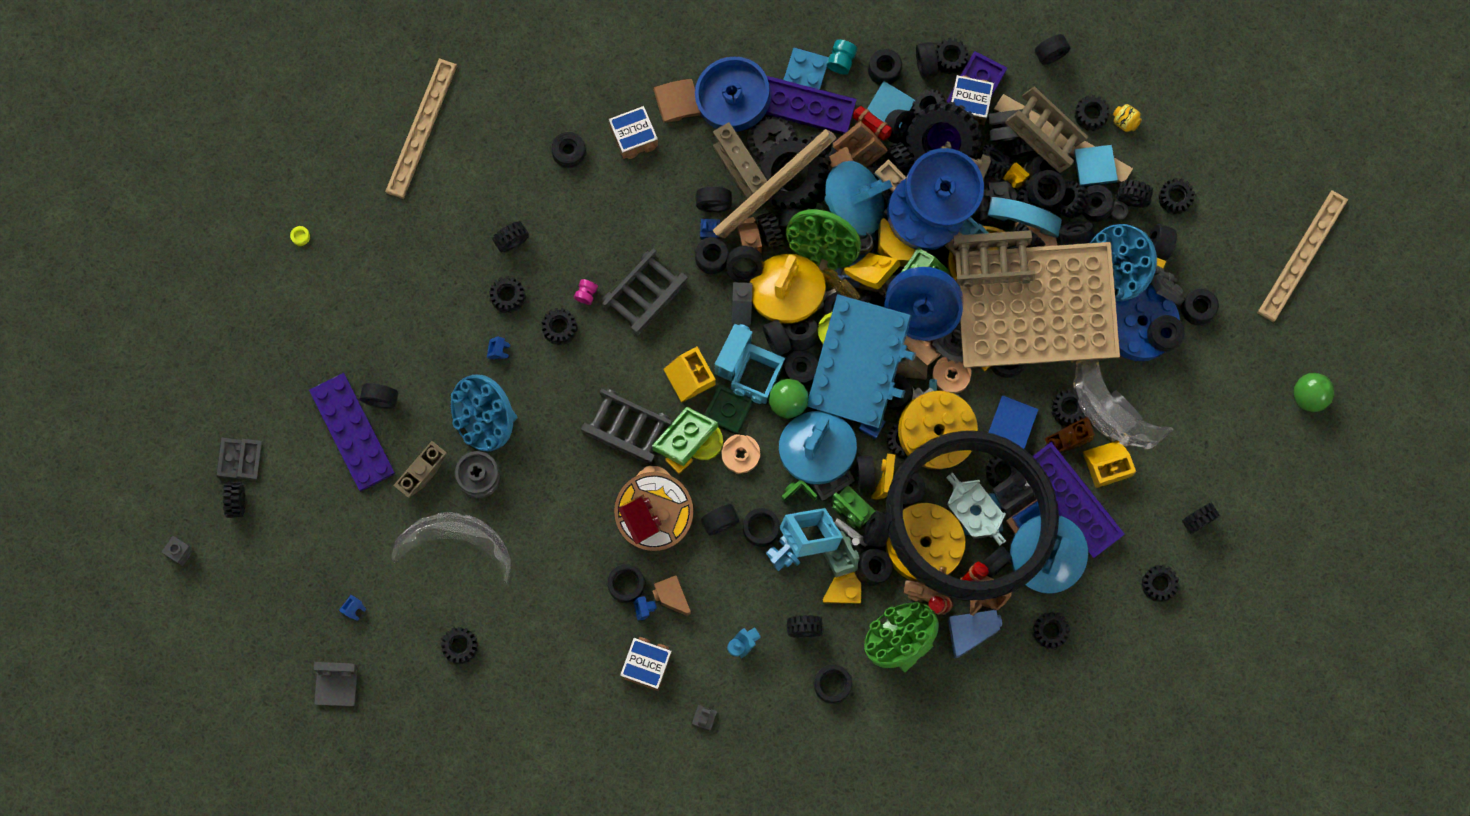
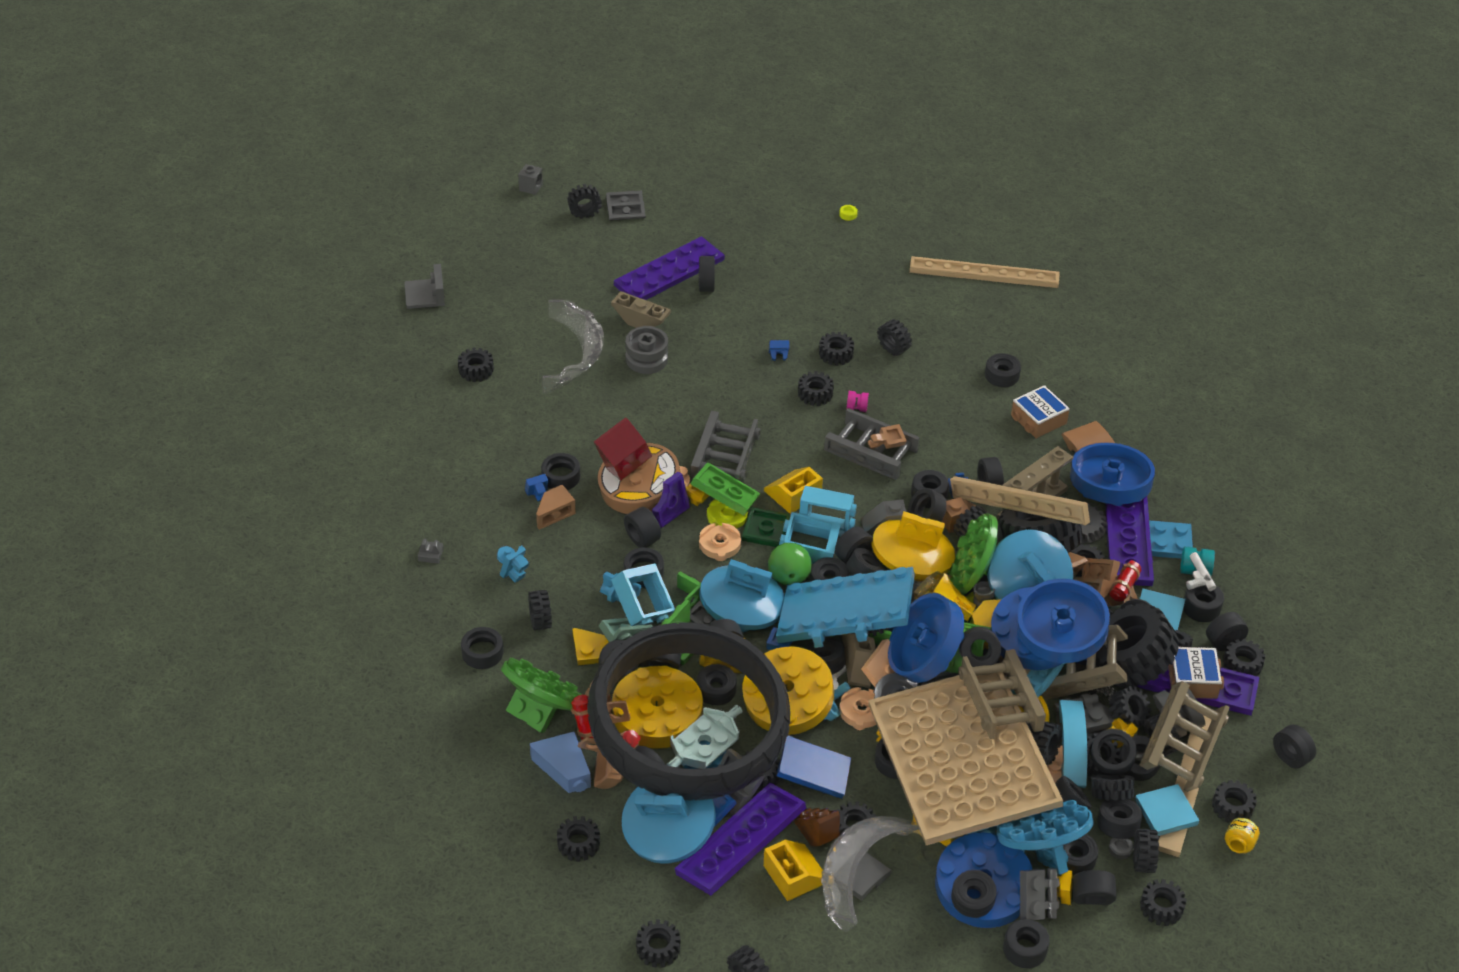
camera: 80 degrees right, 30 degrees down
(350, 607) = (500, 289): blue tile -> none
(483, 411) = (711, 343): dark azure bracket -> none
(646, 663) = (479, 495): piece -> none
(652, 274) = (890, 436): none -> medium nougat plate
(692, 488) = (672, 501): none -> dark purple tile
(868, 60) = (1200, 575): none -> white hose
(948, 259) = (987, 635): none -> black tyre

